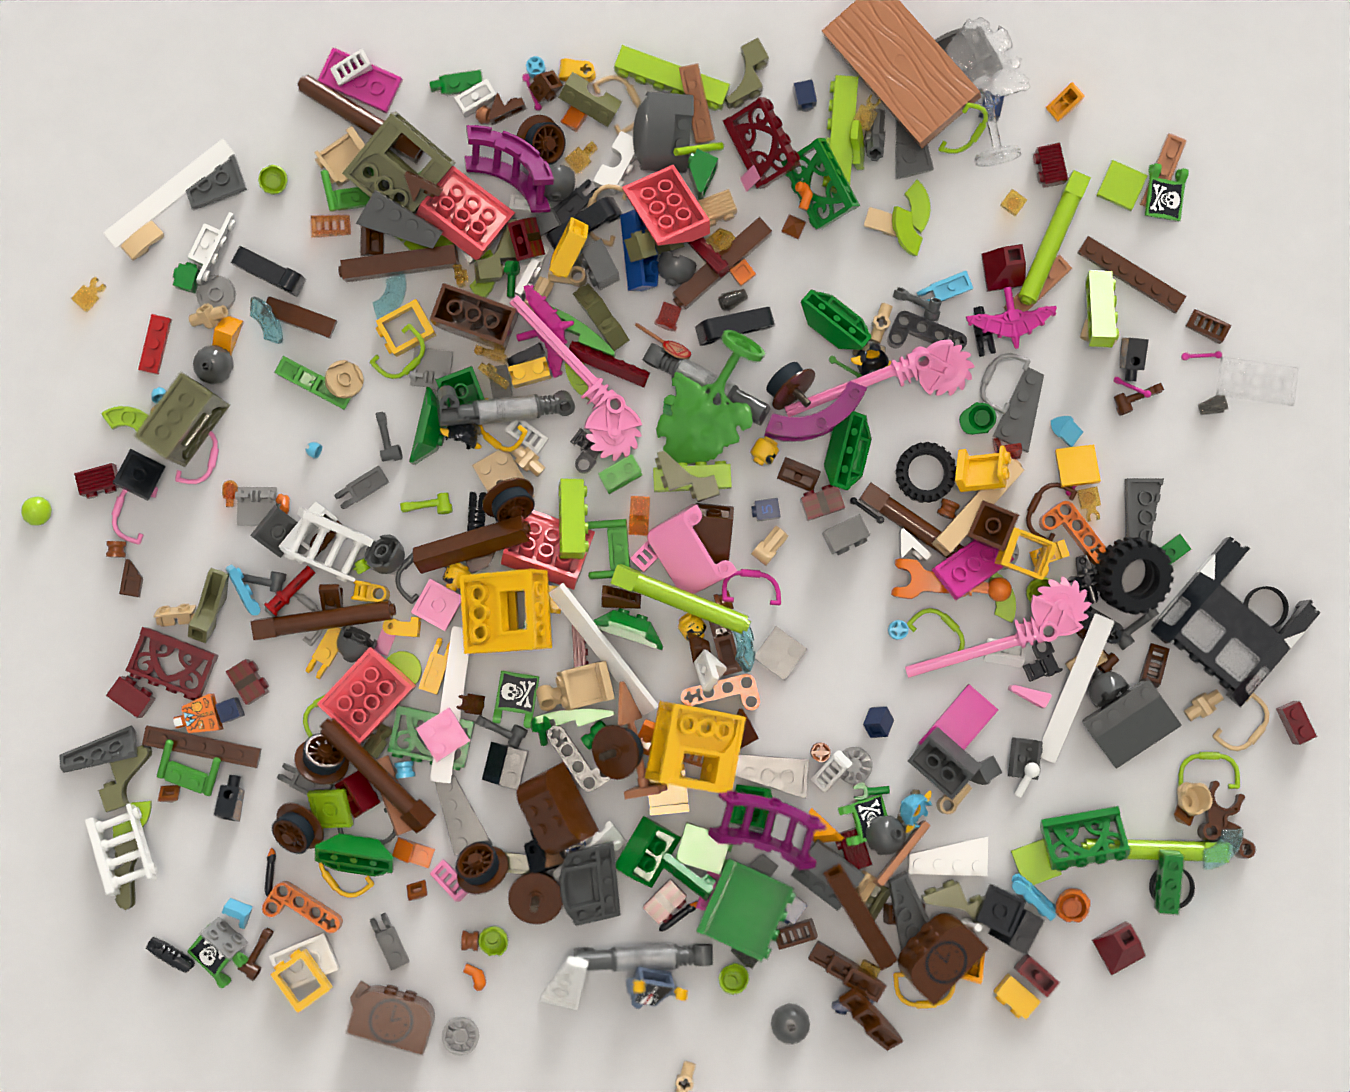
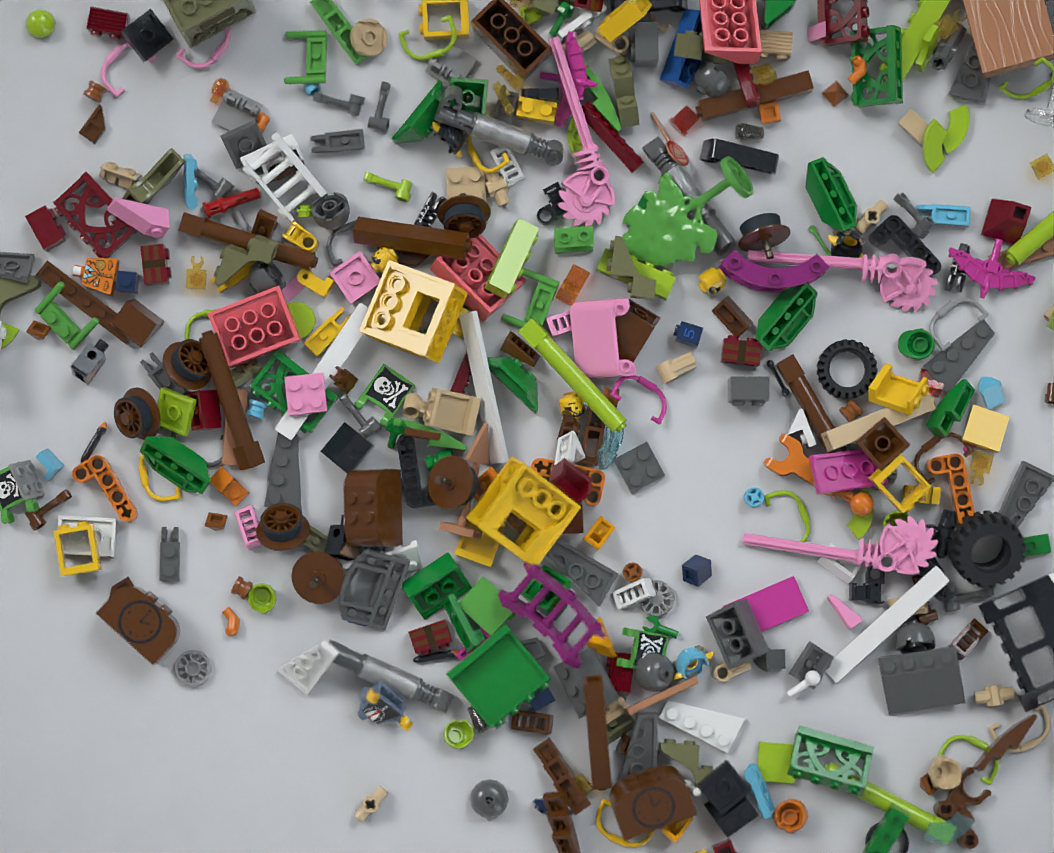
camera: 20 degrees right, 0 degrees up
(214, 644) = (143, 217): none -> bright pink slope
(256, 742) = (137, 322): none -> reddish brown slope
(291, 674) = (196, 277): none -> clear yellow plate
(303, 419) = (315, 57): none -> bright green plate
(318, 640) = (235, 258): none -> olive arch
(360, 448) = (354, 103): none -> dark grey brick
(568, 720) = (422, 434): none -> reddish brown tile
(725, 697) = (571, 480): none -> dark red panel
(773, 731) = (599, 533): none -> light orange slope
(1037, 463) = (950, 409): none -> green slope
(1238, 736) = (1010, 738): none -> reddish brown slope

